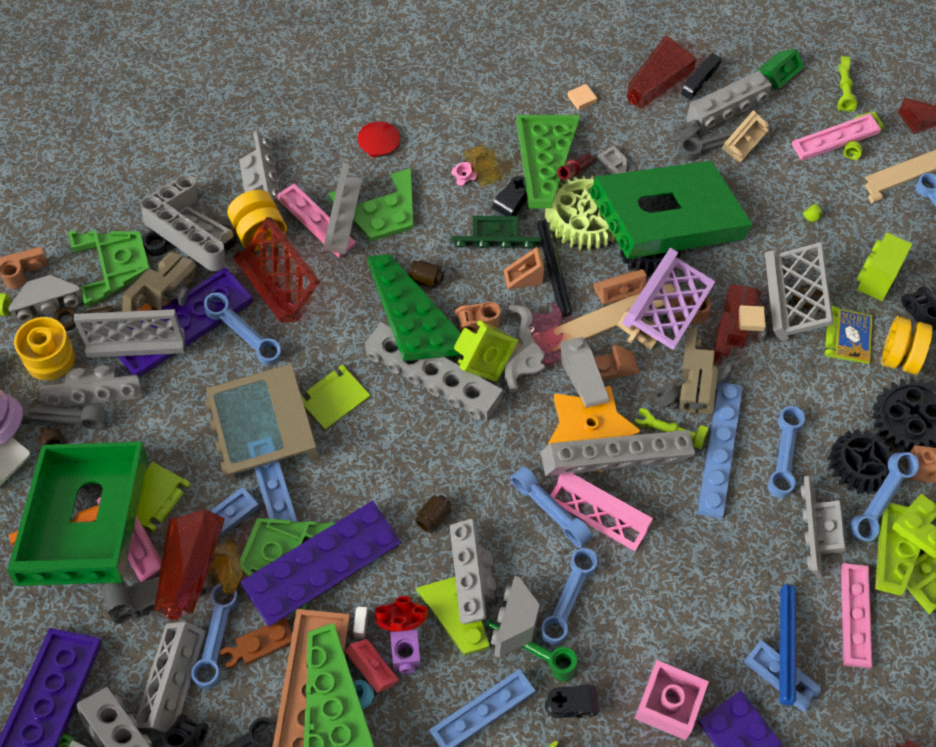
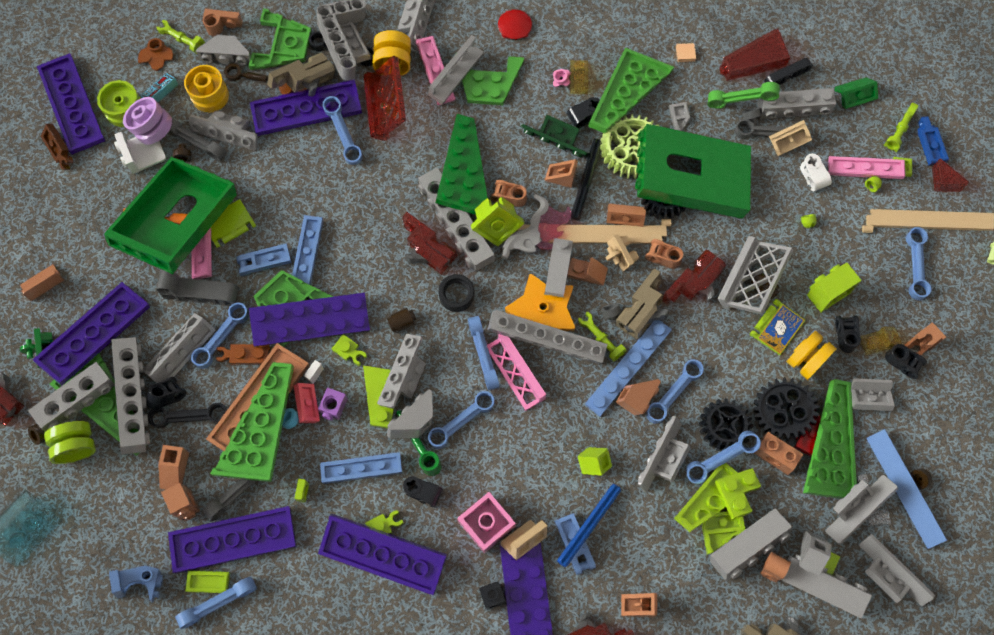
camera: 30 degrees right, 10 degrees up
(121, 341) = (263, 103): light grey fence -> none
(185, 562) = (218, 279): clear red slope -> none
(227, 565) = (246, 290): clear yellow slope -> none
(259, 420) = (321, 202): panel -> none
(334, 397) = (380, 207): lime piece -> none
(384, 577) = (347, 348): none -> lime plate
(401, 615) = (342, 379): red dish -> none
(414, 417) = (426, 247): none -> clear red plate
(426, 273) = (491, 144): dark brown brick -> none
(474, 470) = (451, 279): none -> black tyre
(573, 167) = (640, 108): dark red axle -> none
(650, 293) = (638, 230): lavender fence -> none
(698, 97) = (769, 92): none -> bright green piece
(724, 697) = (524, 538): none -> tan panel
(748, 569) = (594, 461): none -> lime panel
(752, 318) = (705, 282): tan tile -> none
(752, 475) = (636, 397): none -> nougat slope
(791, 163) = (815, 173): none -> white piece
(856, 616) = (653, 529): bright pink tile -> none
(882, 86) = (931, 141): none -> blue hinge
(897, 707) = (639, 605): none -> nougat slope

